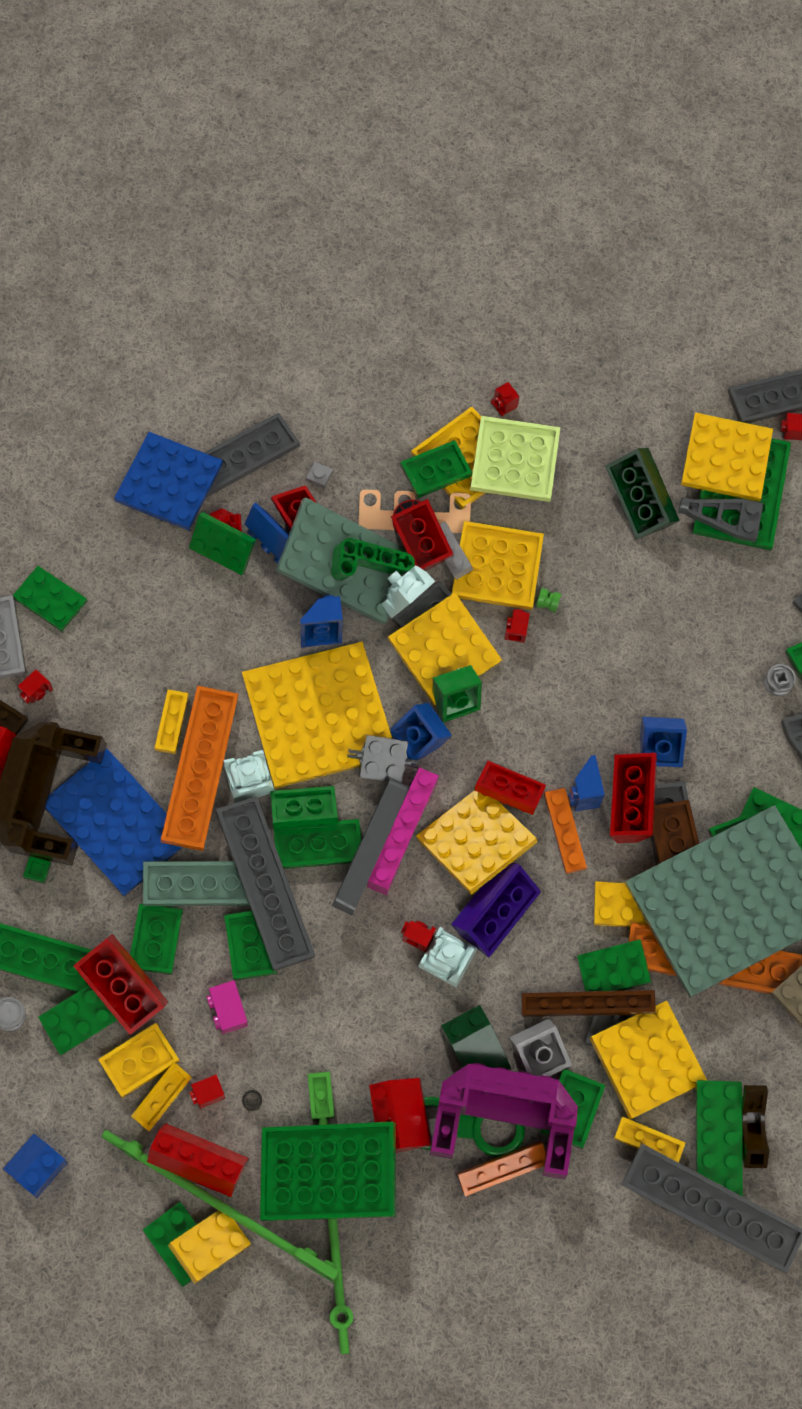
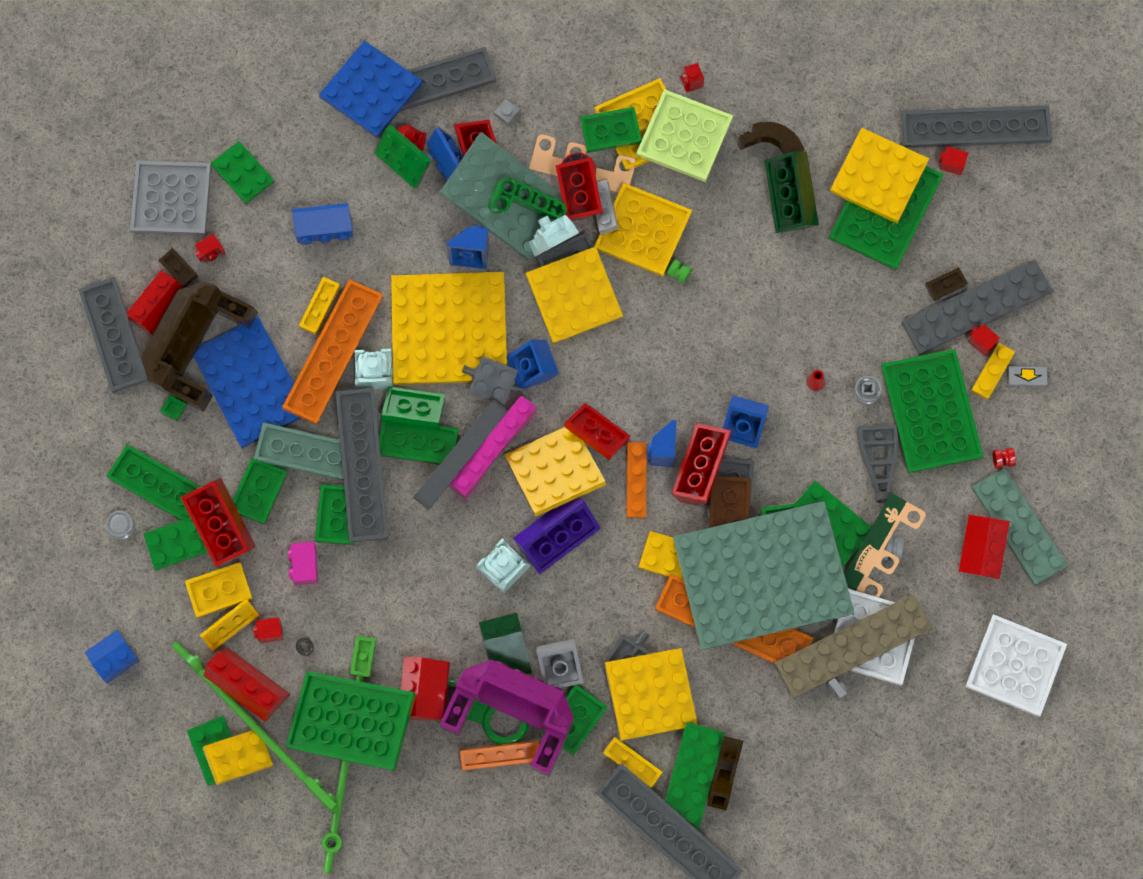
camera: 20 degrees right, 5 degrees up
(153, 632) = (322, 223): none -> blue slope
(418, 934) = (482, 540): red brick -> none
(457, 693) = (573, 337): green slope -> none
(517, 626) = (644, 288): red brick -> none
(588, 1003) = (612, 634): reddish brown plate -> none
(605, 438) = (771, 133): none -> dark brown arch
(615, 968) = (643, 610): green plate -> none
(724, 681) = (816, 384): none -> red cone
(748, 521) = (883, 230): dark grey plate -> none

